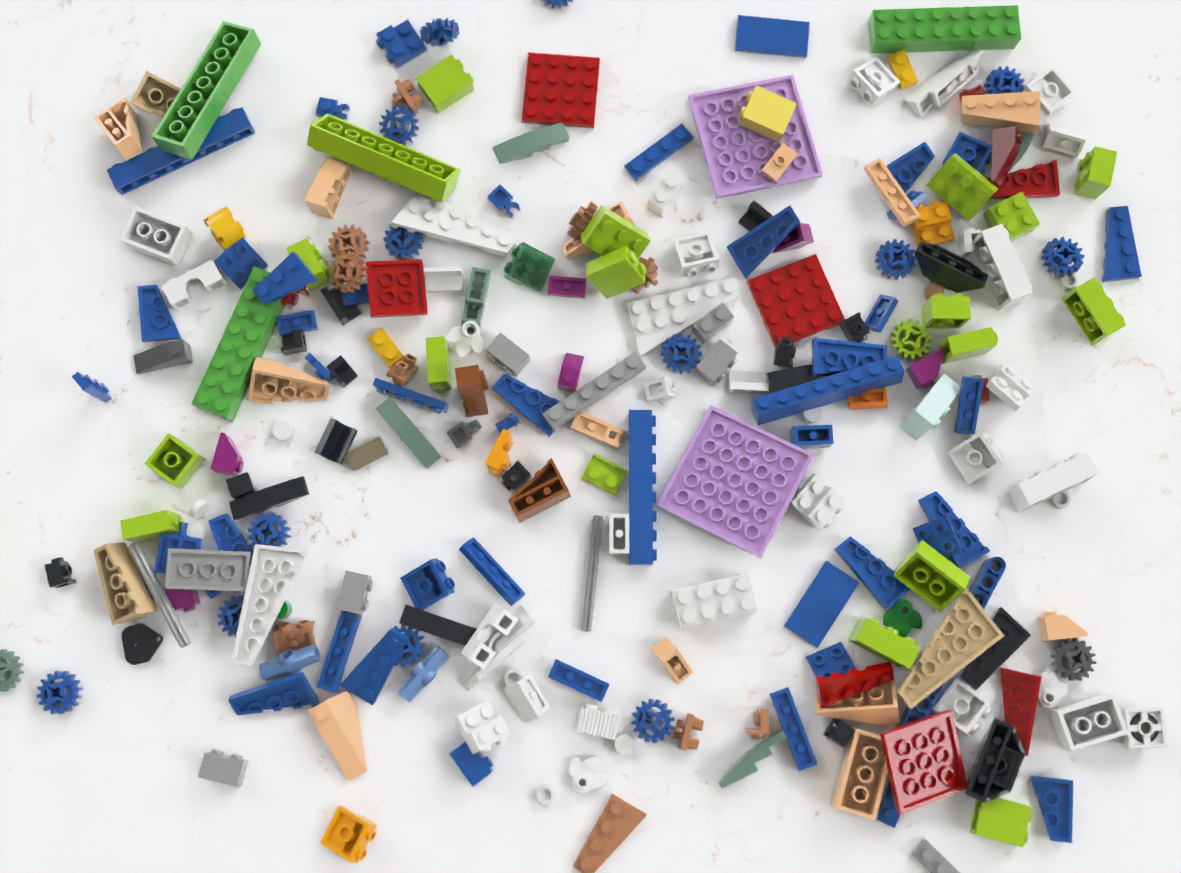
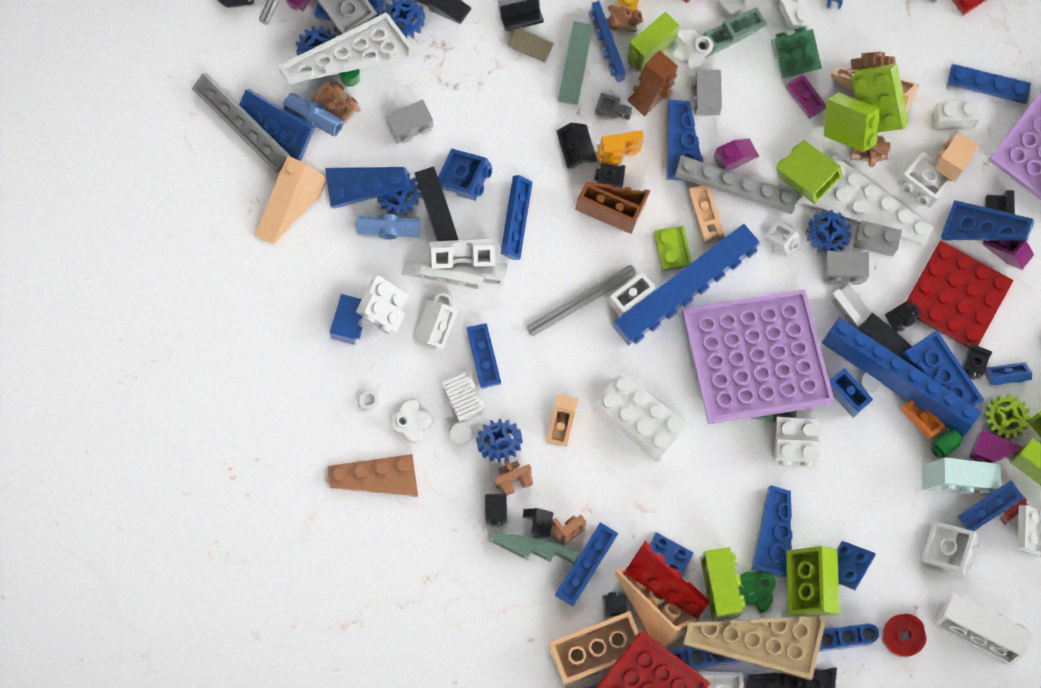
camera: 45 degrees right, 5 degrees down
(223, 768) = (188, 128): light grey brick -> none
(250, 723) = (240, 122): none -> light grey plate
(339, 652) = (352, 146): blue plate -> none
(349, 835) = (213, 266): light orange plate -> none
(471, 482) = (576, 144): none -> black panel
(508, 422) = (652, 137): blue pin -> none
(626, 331) = (809, 171): none -> lime brick
(696, 219) = (956, 156): none -> light nougat brick
(702, 764) = (495, 509): none -> black brick
(738, 738) = (541, 523): none -> black panel
(821, 604) = (712, 511): blue tile -> none
(898, 398) = (946, 443): none -> green brick
(936, 507) = (868, 597): blue wing -> none
(1022, 545) = (916, 632): none -> red plate
(1061, 501) = (974, 654): white tile -> none

